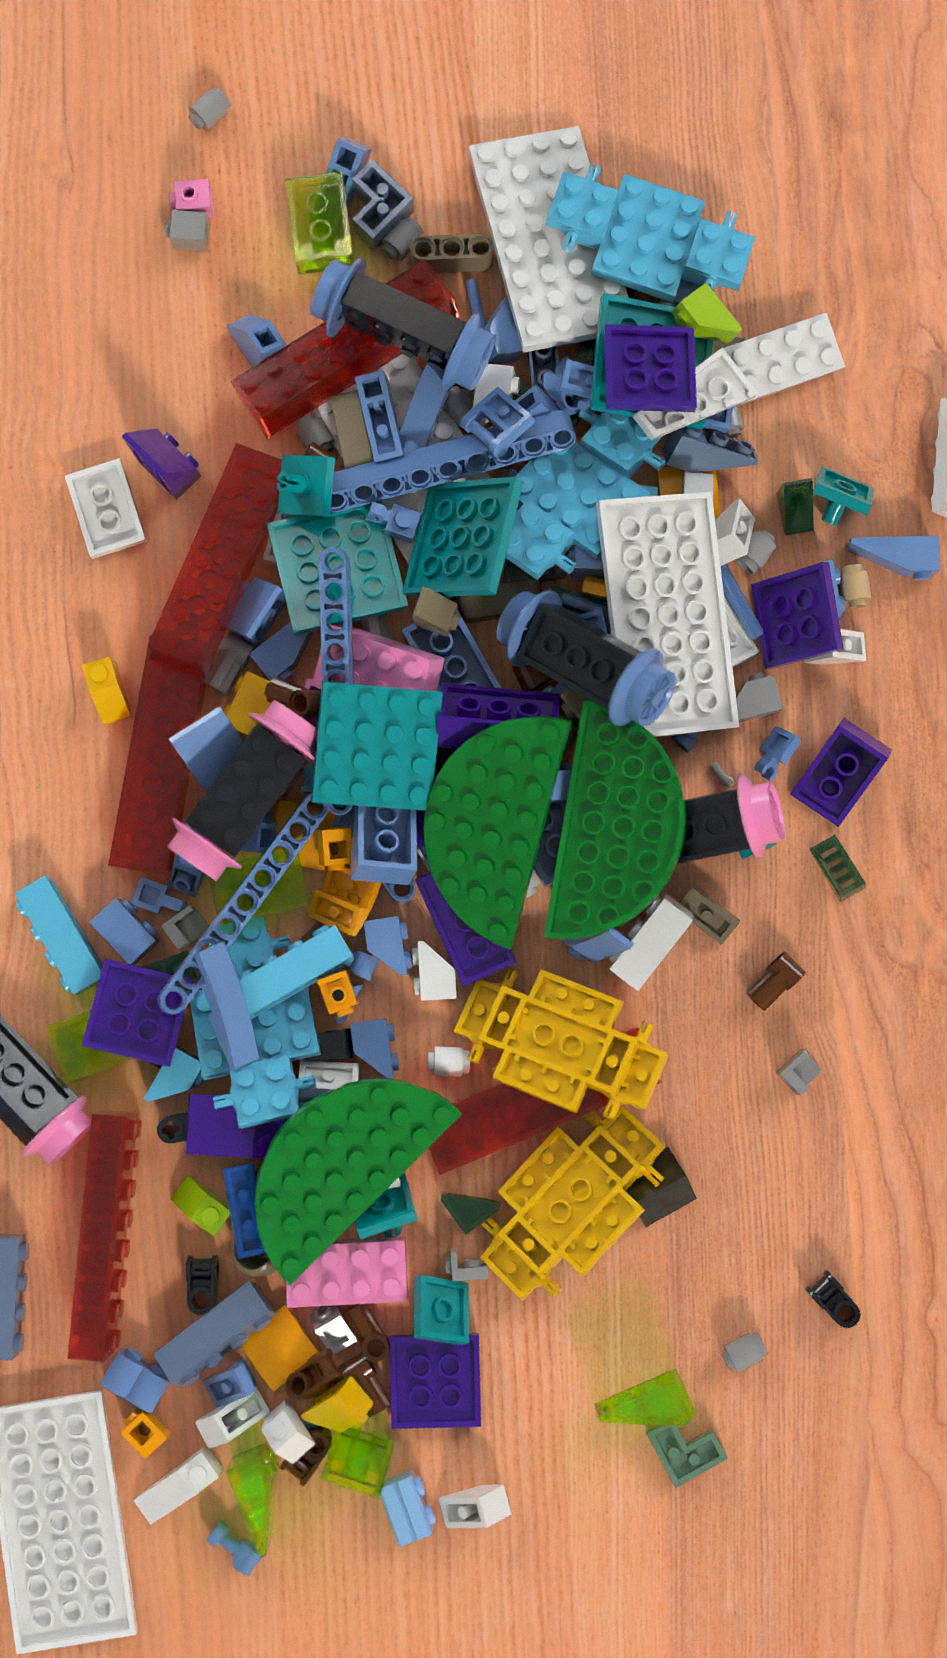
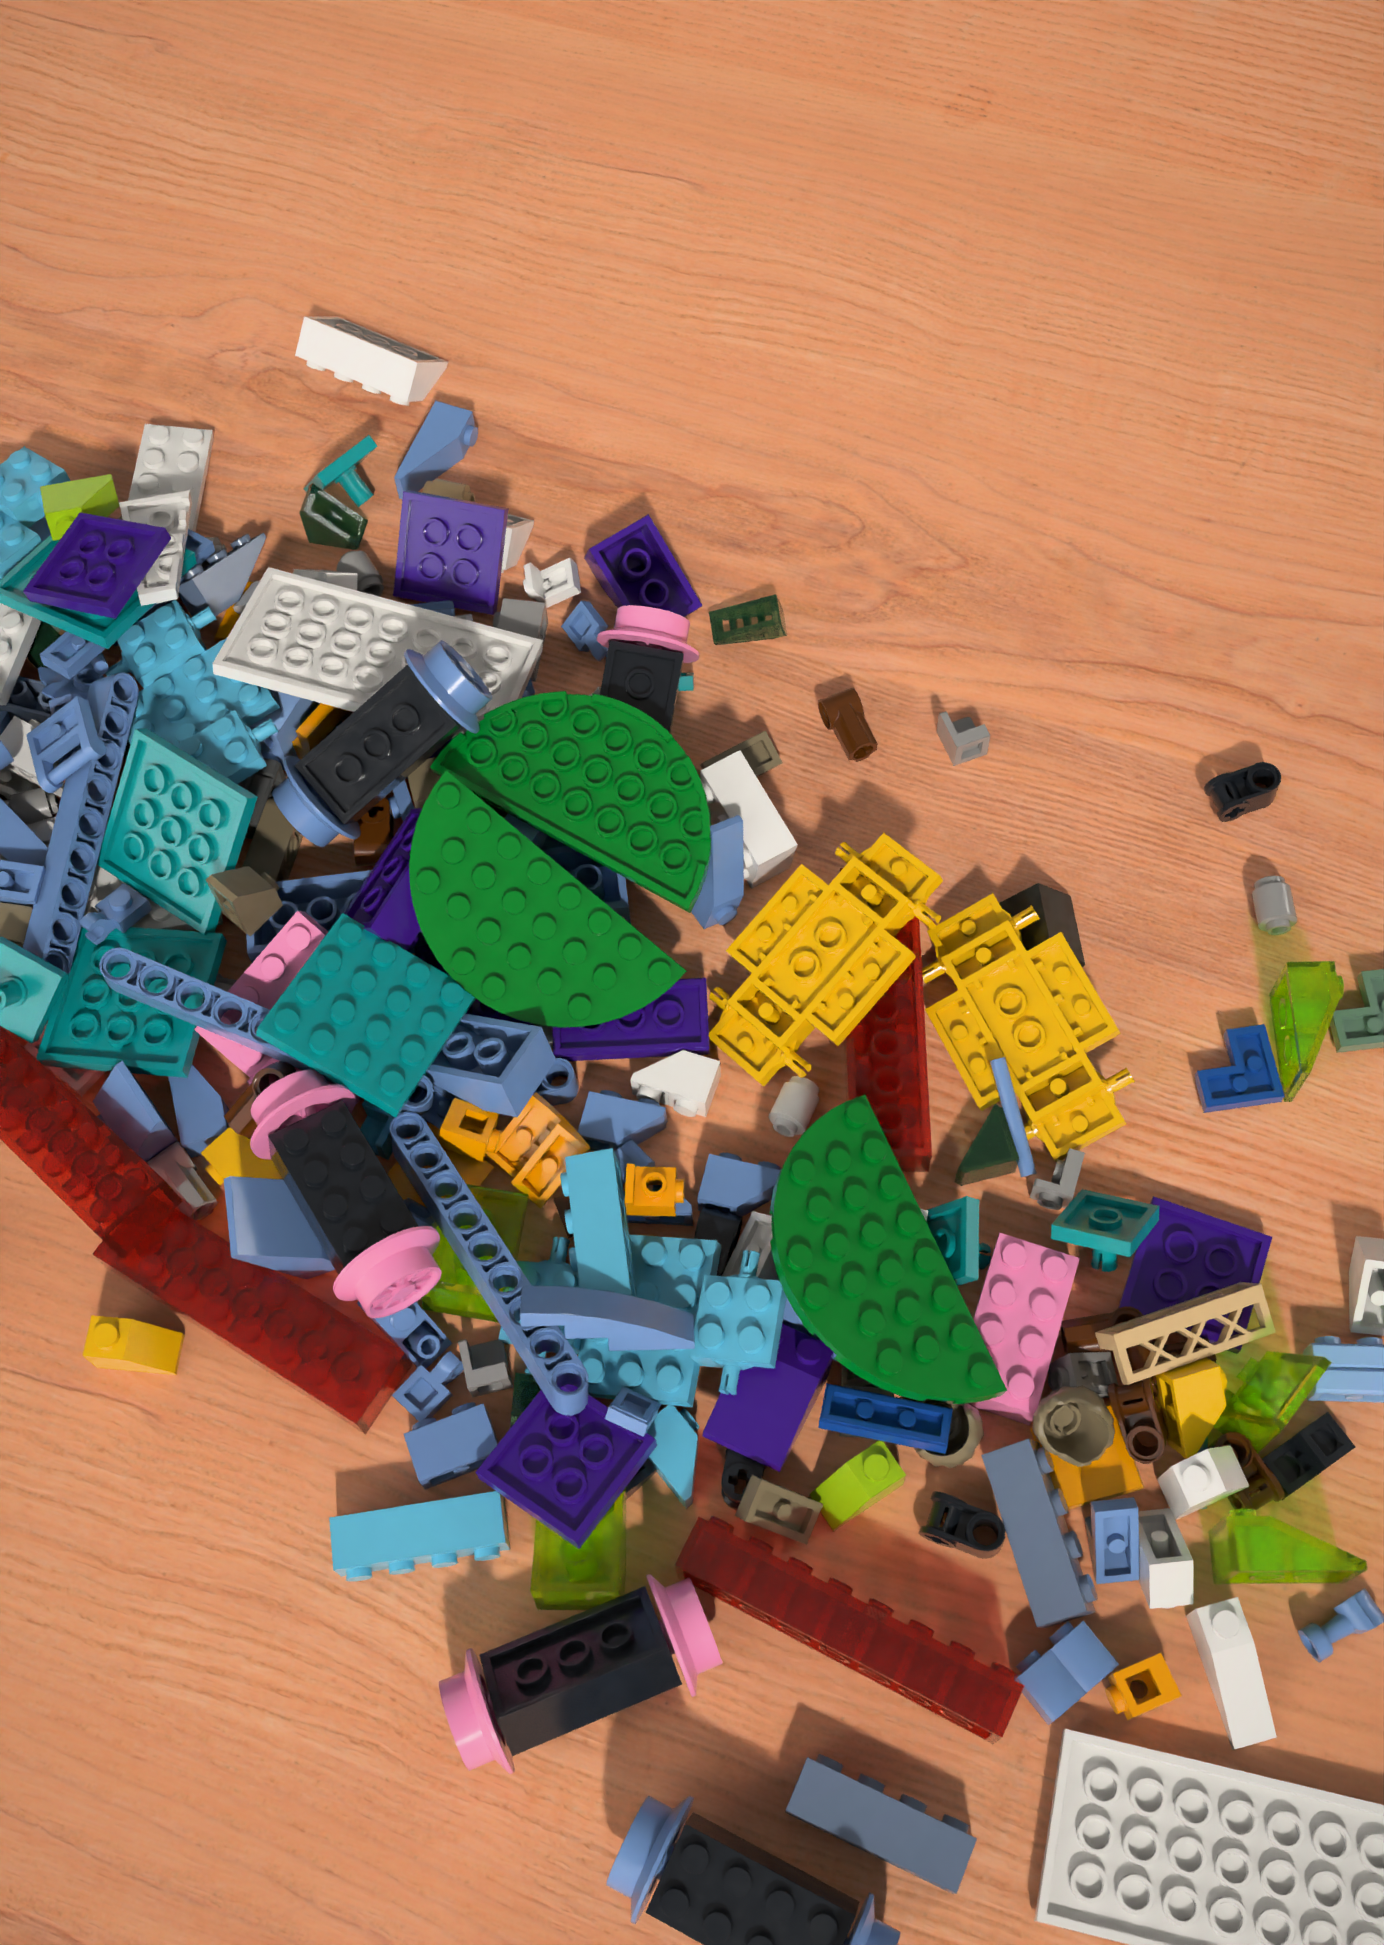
camera: 65 degrees left, 20 degrees down
(162, 1161) = (779, 1509): none -> dark tan plate
(182, 1043) = (632, 1411): none -> medium blue tile
(287, 1336) = (1074, 1425): none -> dark tan hair
(342, 1500) = (1308, 1453): none -> black slope
(389, 1383) = (1183, 1315): none -> tan fence
(496, 1219) = (1013, 1115): none -> medium blue bar
(596, 1375) = (1248, 1080): none -> blue plate
(810, 703) = (552, 583): none -> white bracket

